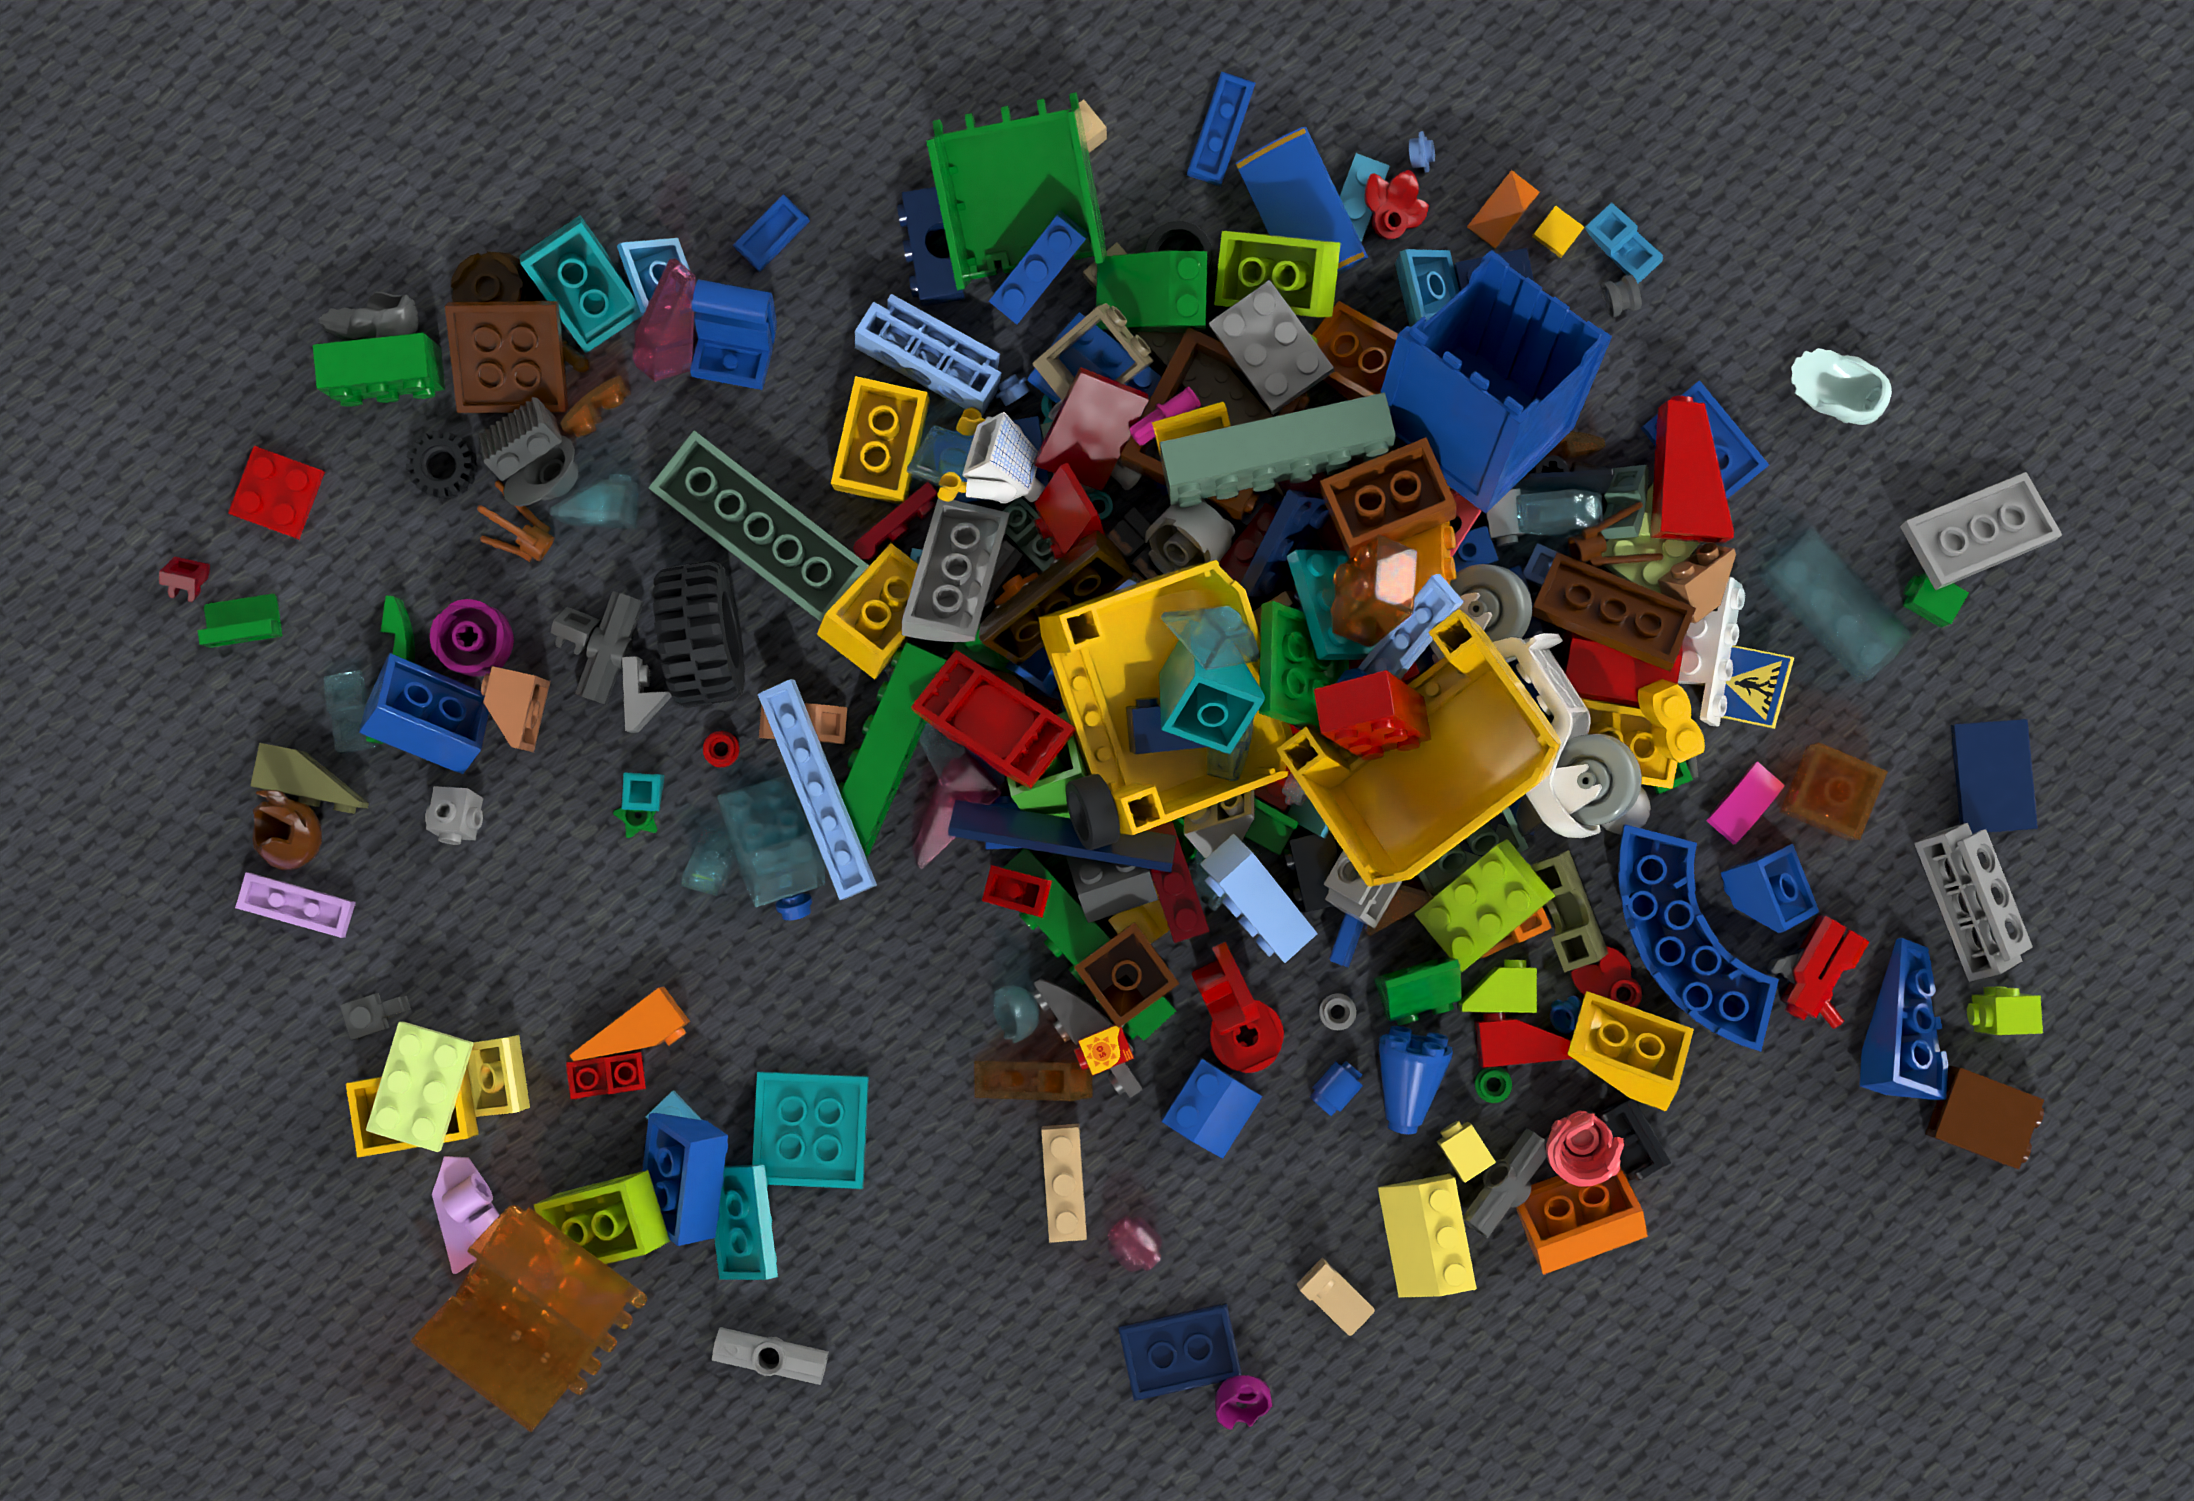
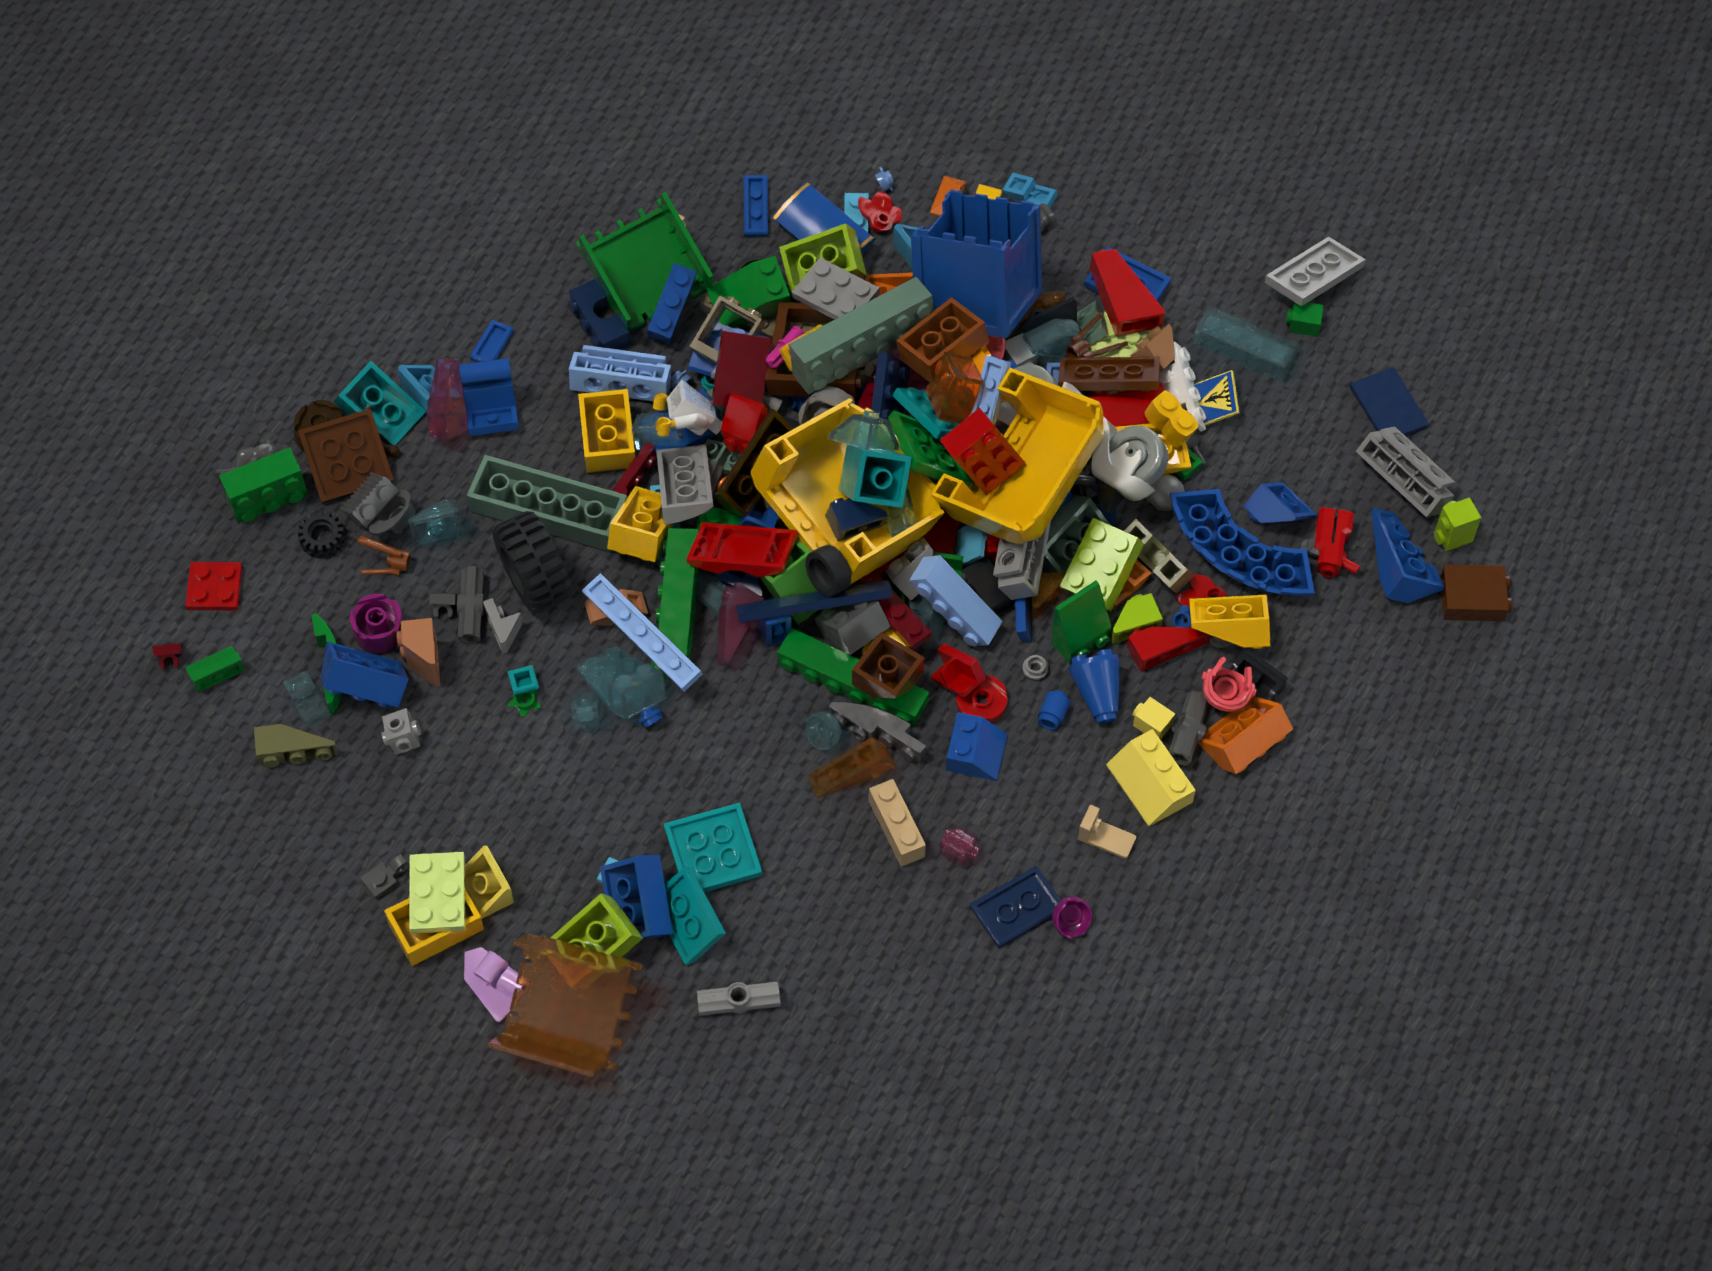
camera: 25 degrees left, 25 degrees down
(285, 831) = (291, 779): reddish brown helmet -> none
(295, 905) = (308, 825): lavender plate -> none
(585, 413) = (417, 461): clear orange slope -> none
(605, 1075) = (561, 863): red slope -> none
(643, 1026) = (573, 823): orange slope -> none
(710, 744) = (566, 635): red plate -> none
(1016, 891) = (798, 645): red slope -> none
(1103, 1049) = (891, 722): brick -> none
(1293, 792) = (954, 540): clear plate -> none
(1504, 1087) = (1157, 671): green plate -> none
(1745, 803) = (1241, 466): dark pink slope -> none
(1833, 791) = (1292, 438): clear orange brick -> none
(1841, 386) = (1196, 223): light aqua hair -> none

